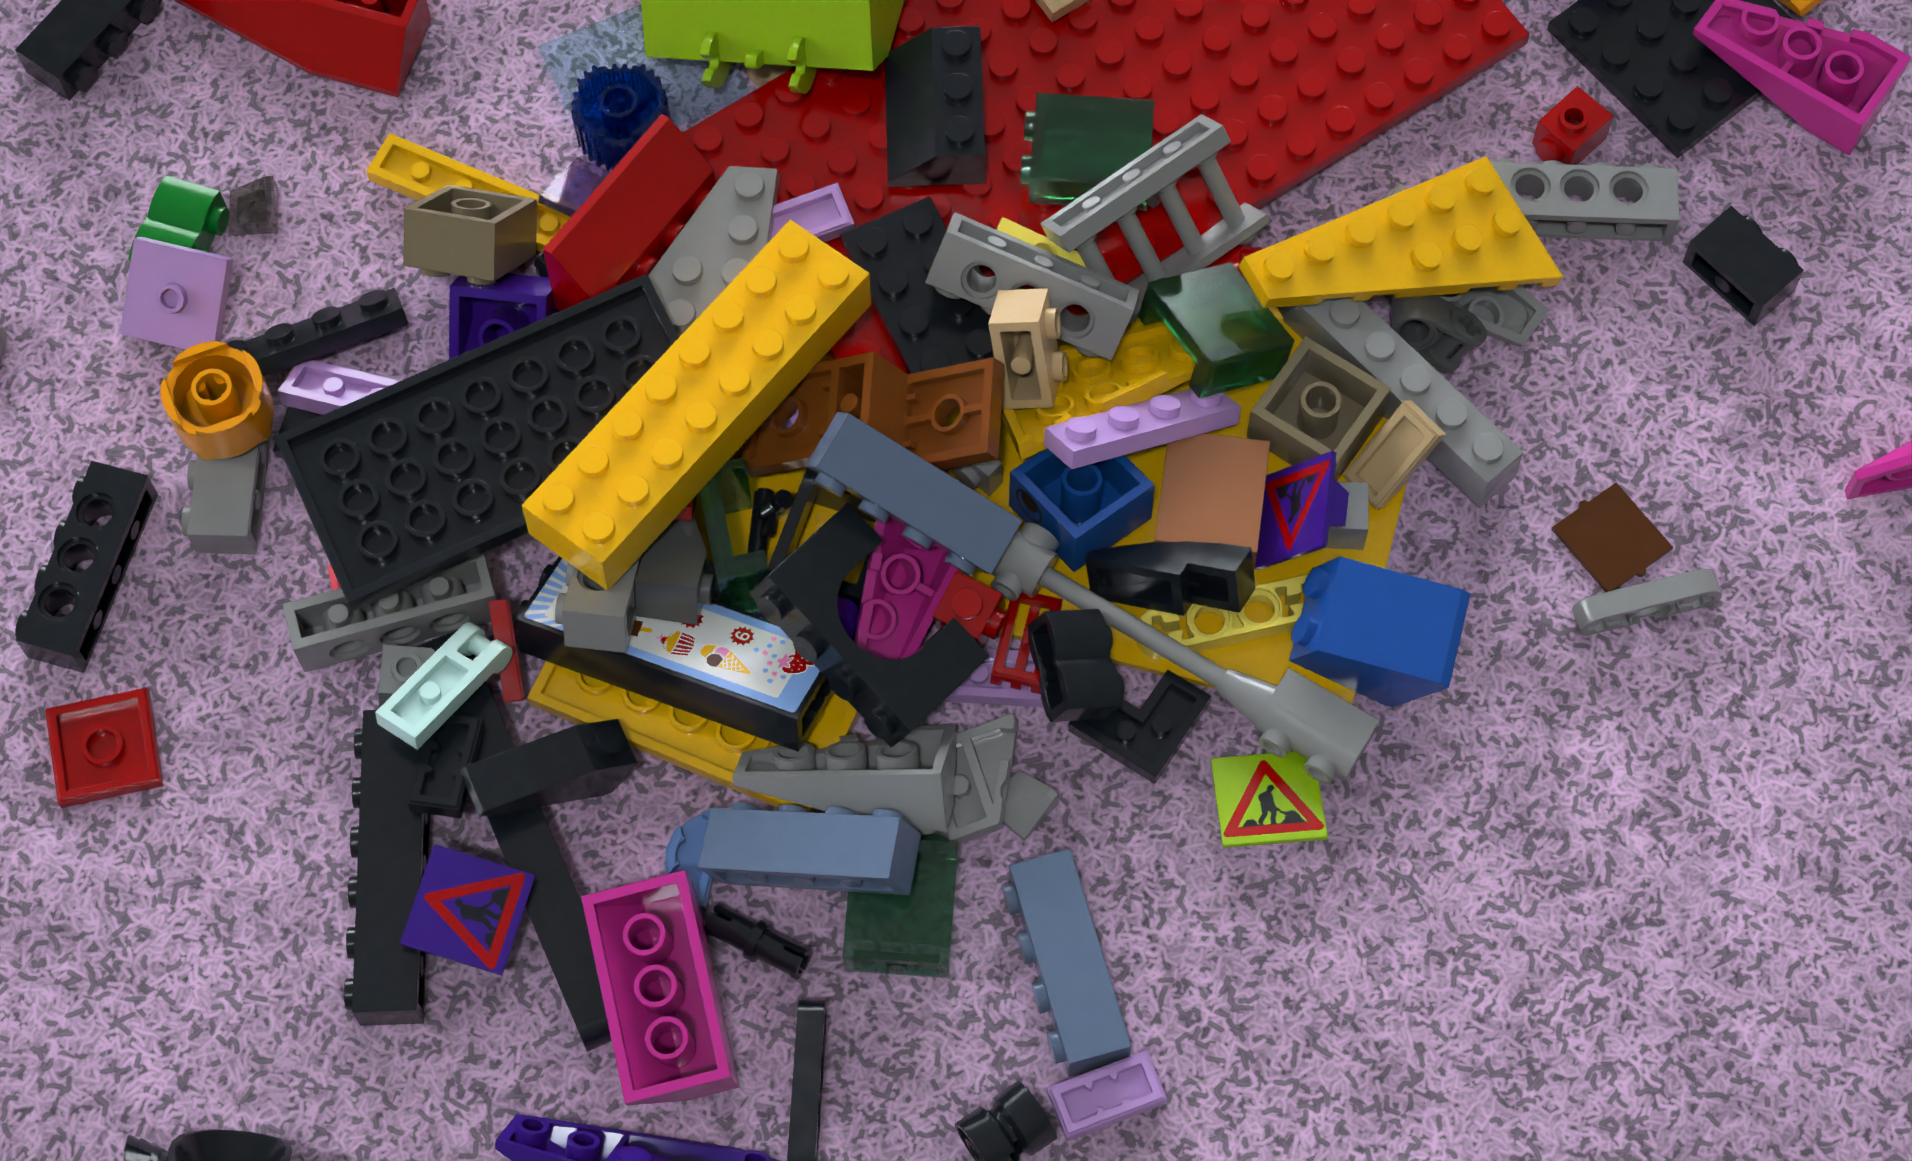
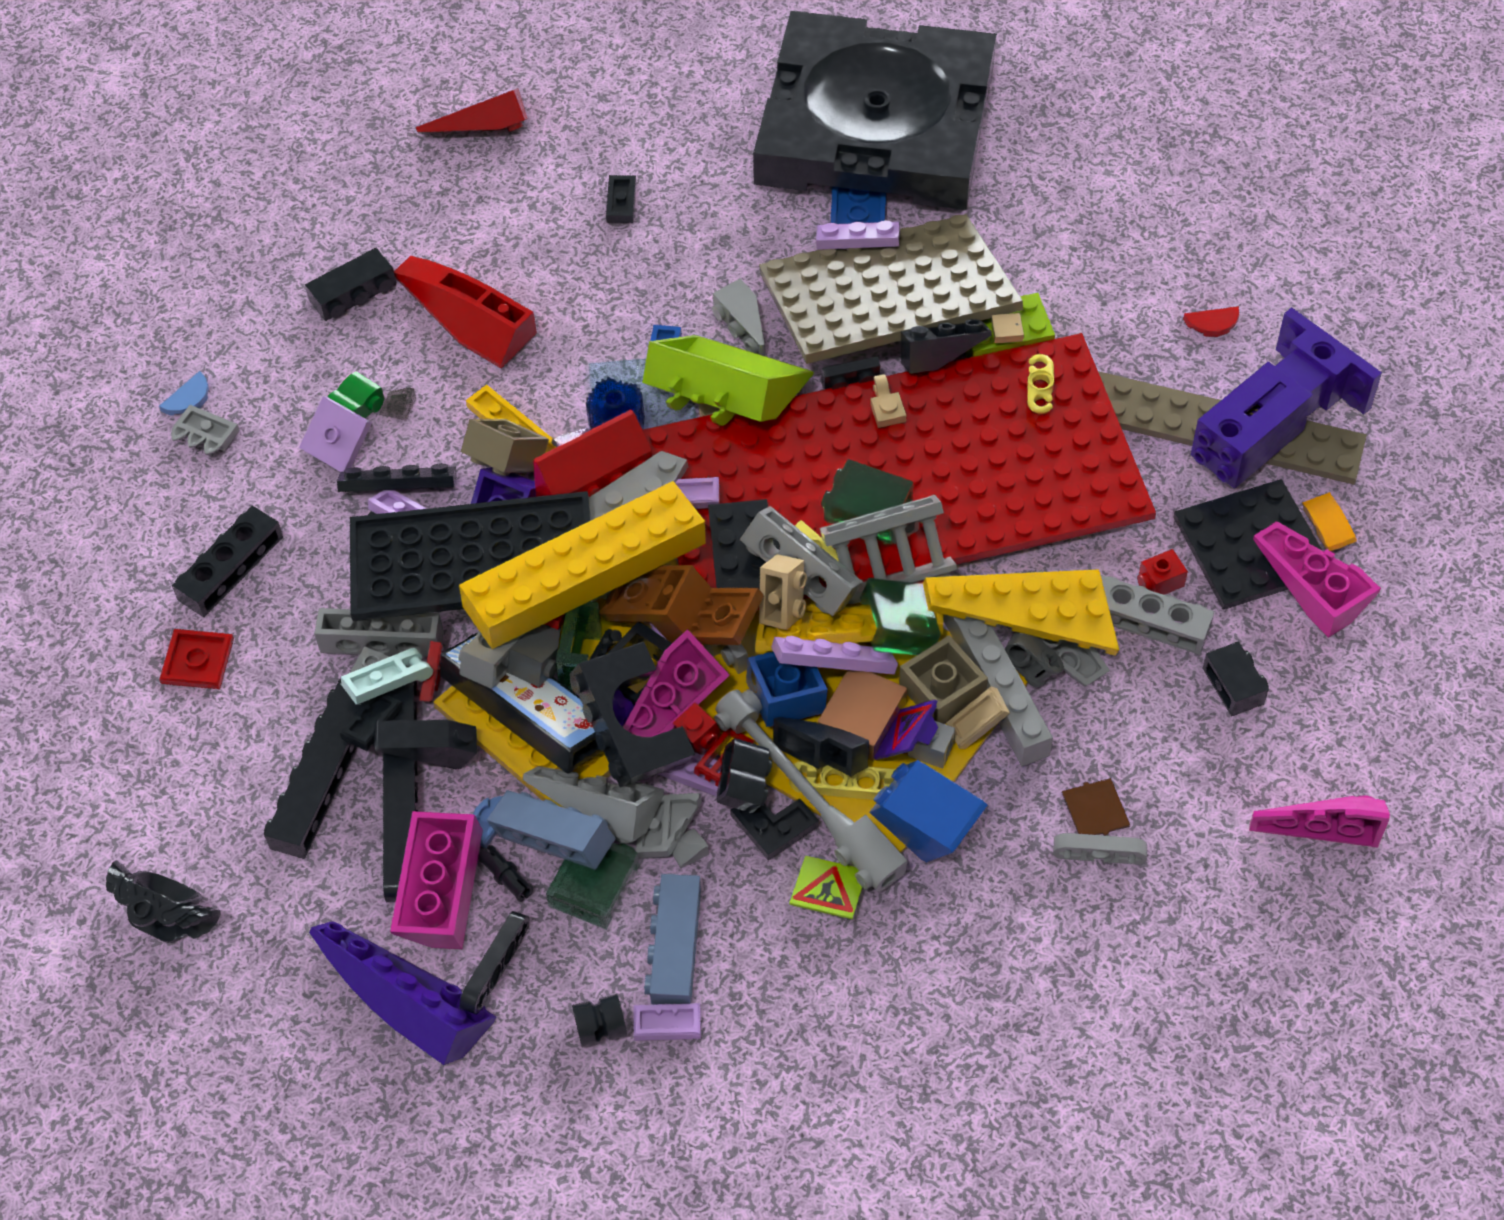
camera: 20 degrees right, 10 degrees down
(217, 400) = (329, 491): light orange brick -> none
(226, 502) = (322, 537): light grey brick -> none
(467, 909) = (349, 801): dark purple piece -> none
(912, 493) = (683, 648): sand blue brick -> none
(936, 109) = (791, 454): black slope -> none

